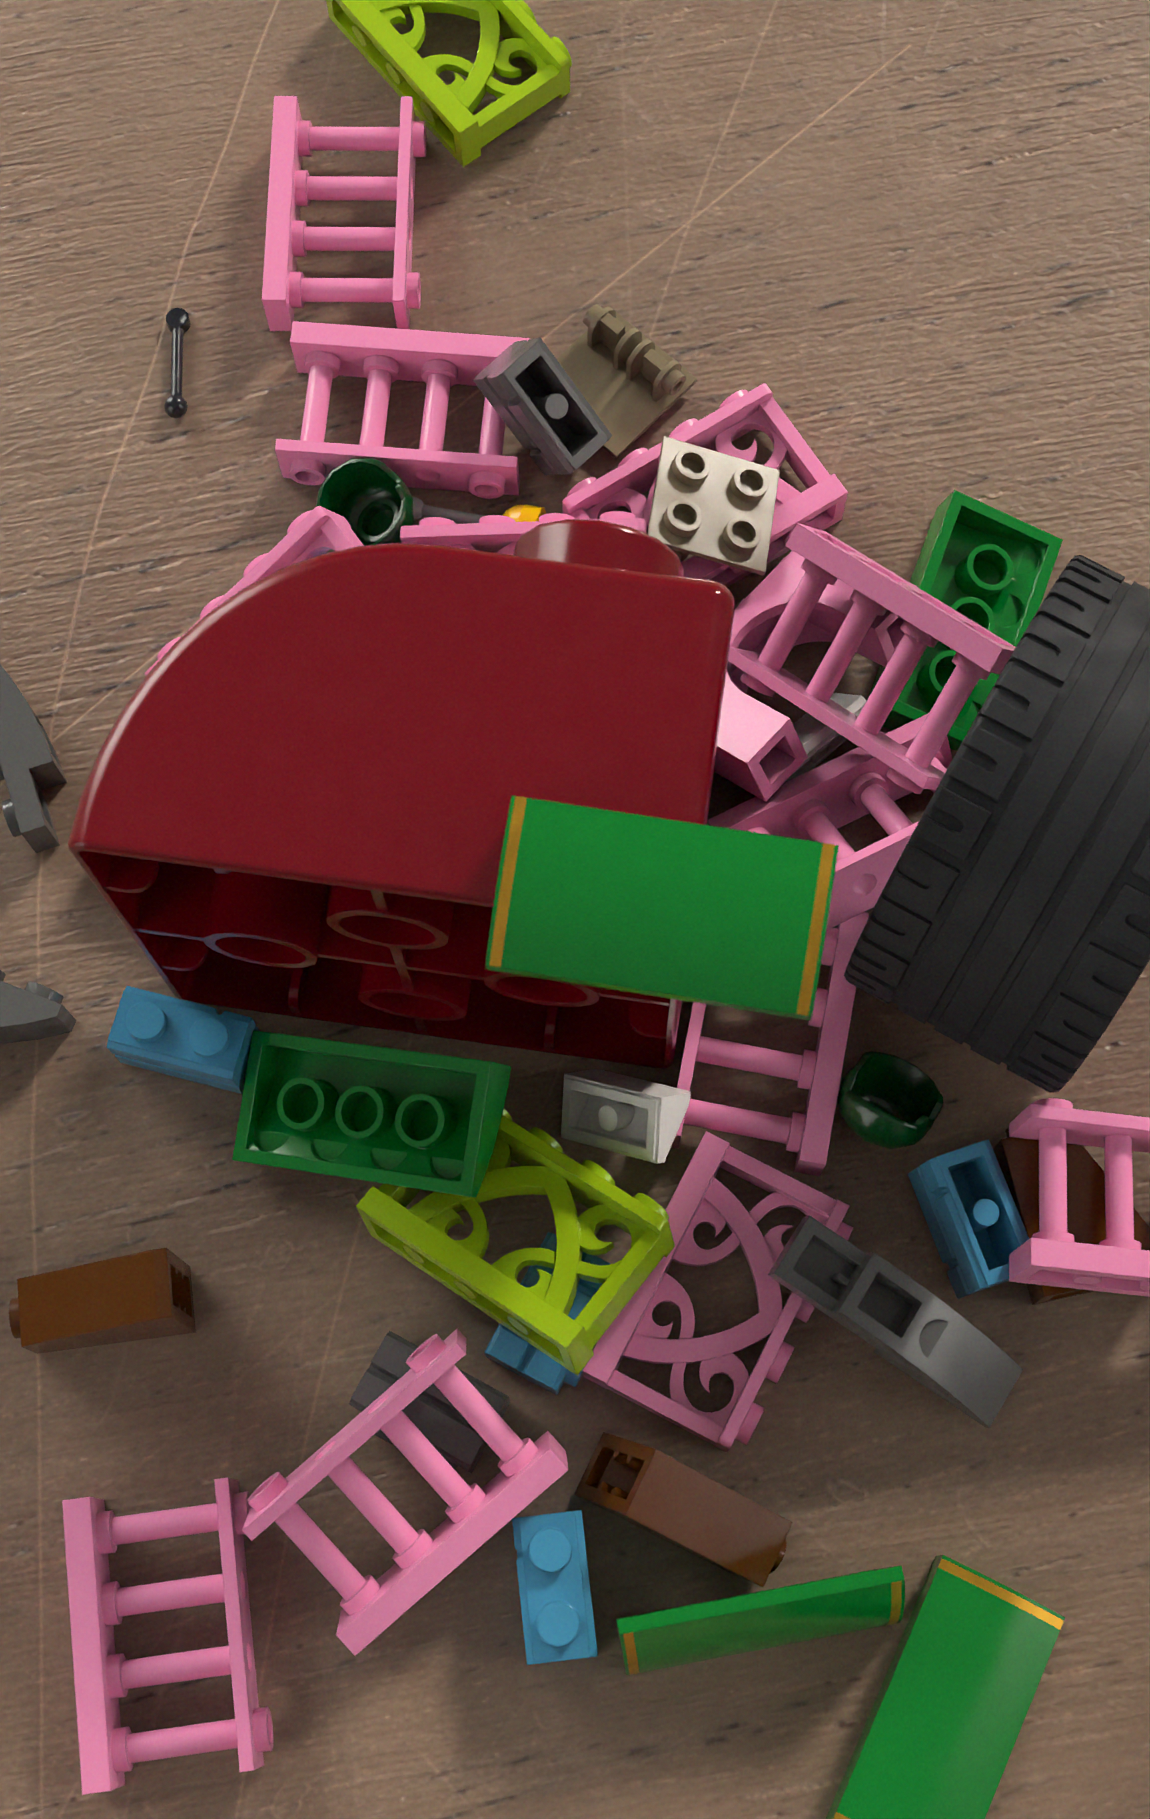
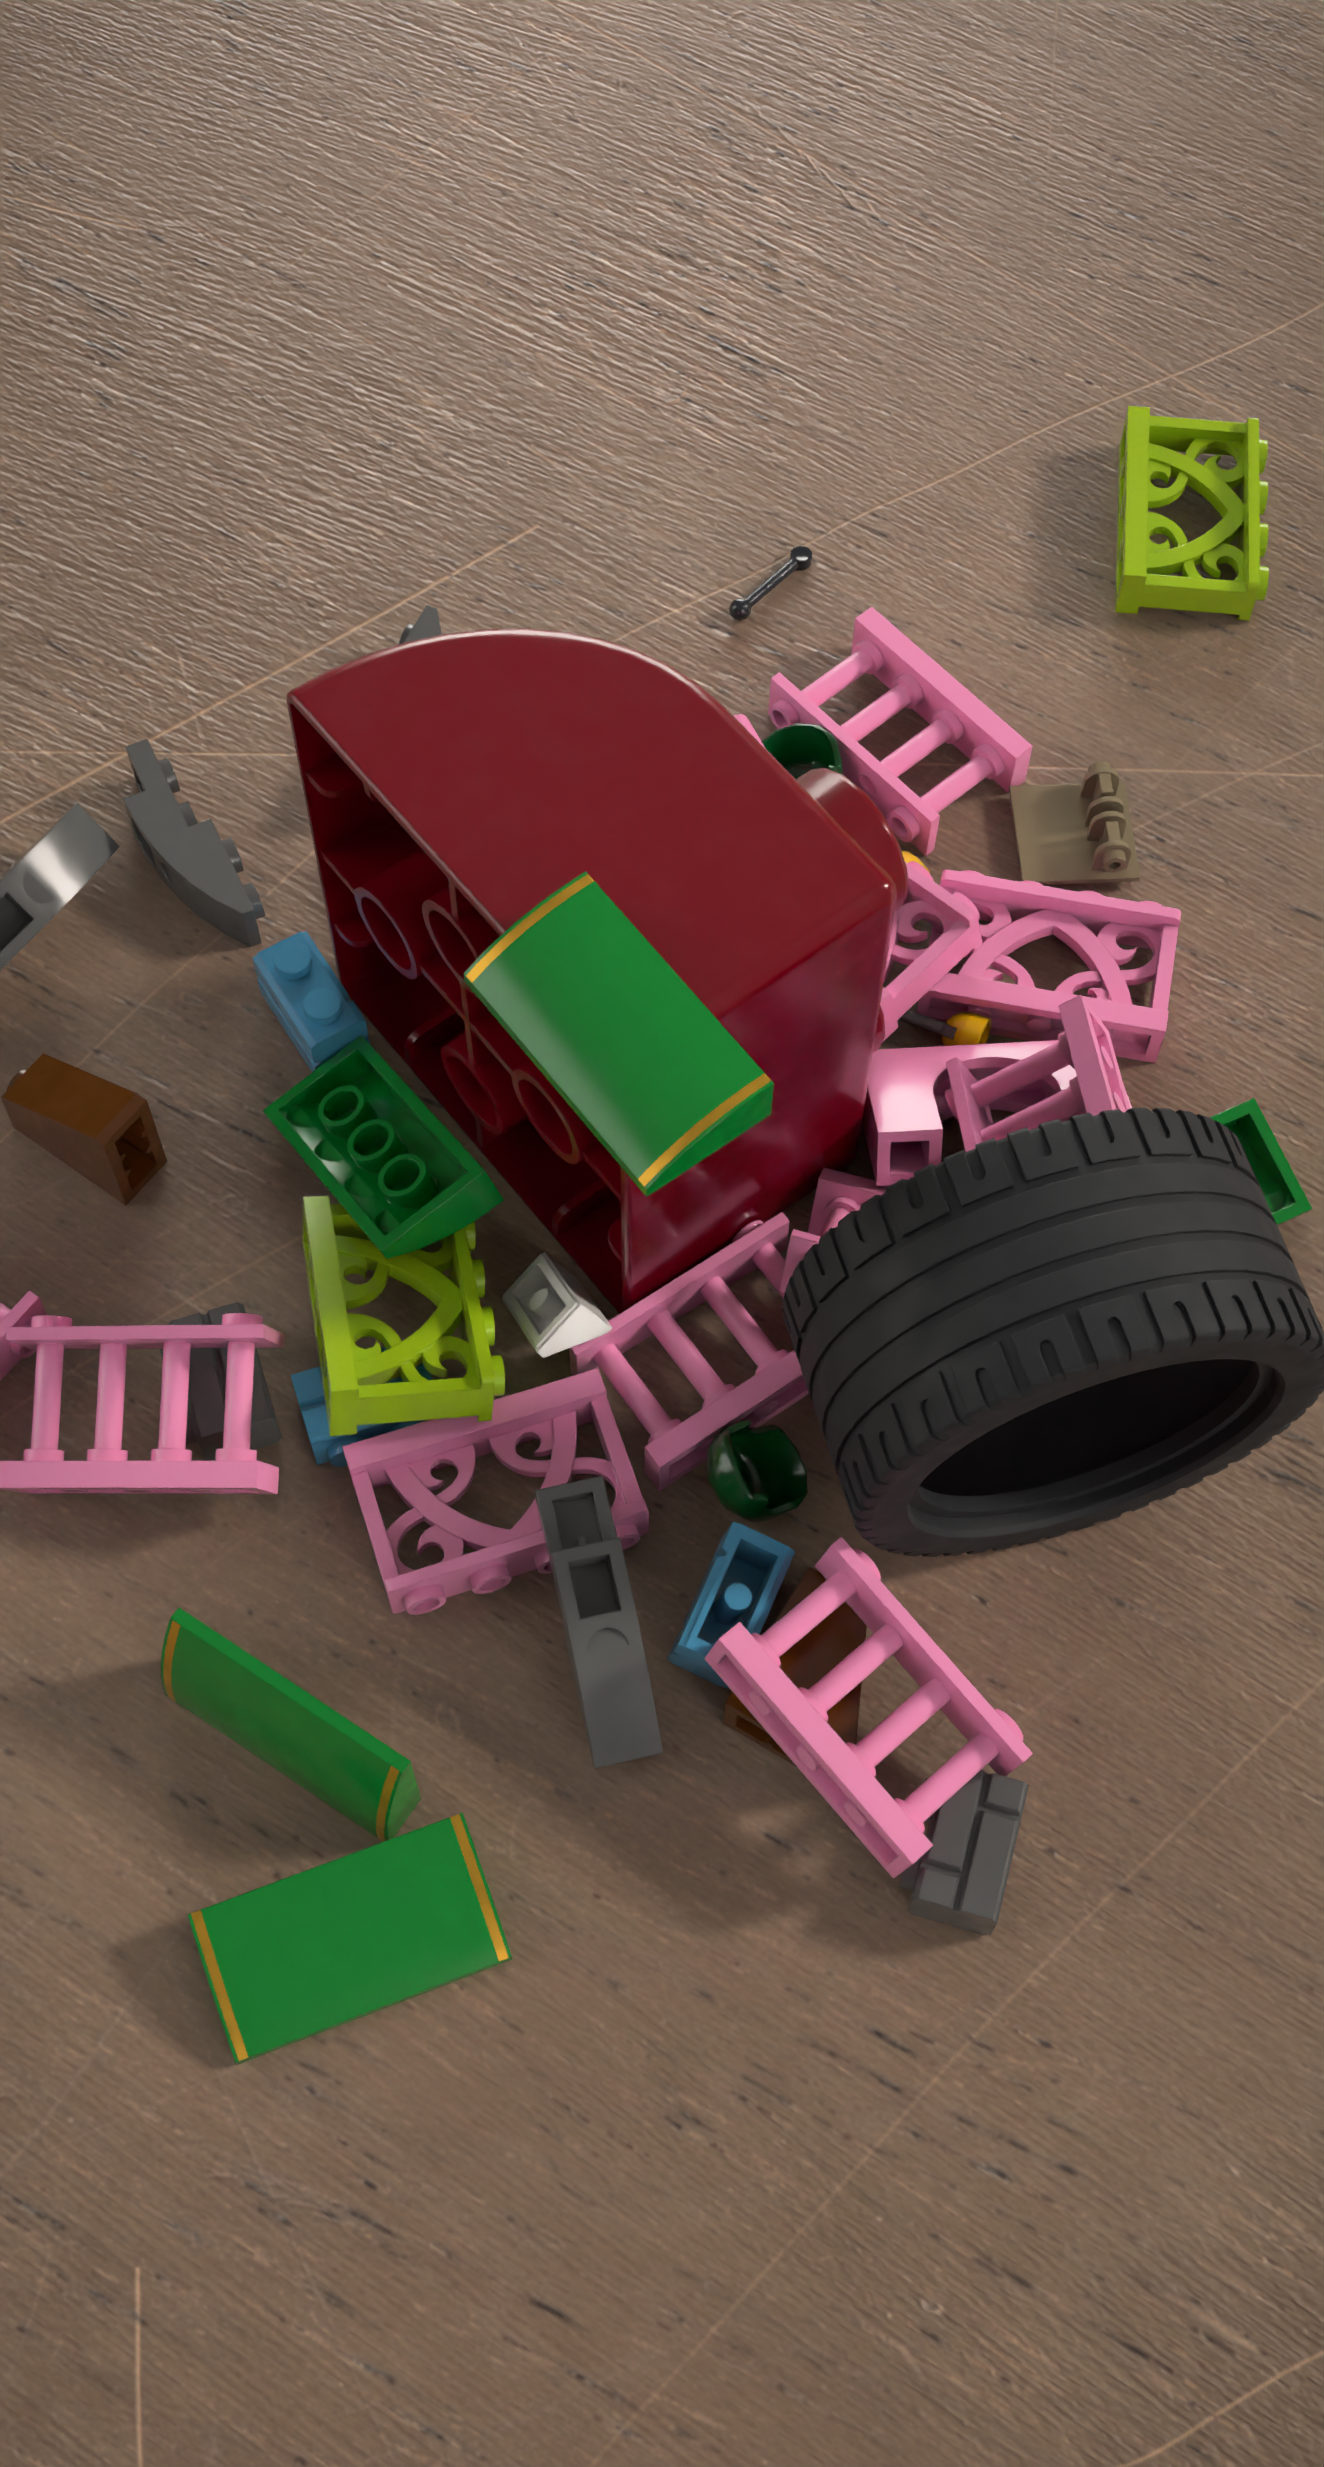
camera: 40 degrees right, 10 degrees down
(293, 187) = (968, 527): bright pink fence -> none
(542, 407) = (992, 795): dark grey brick -> none
(554, 1587) = (178, 1567): dark azure brick -> none
(685, 1508) = (319, 1615): reddish brown slope -> none
(713, 506) = (1043, 954): hinge -> none

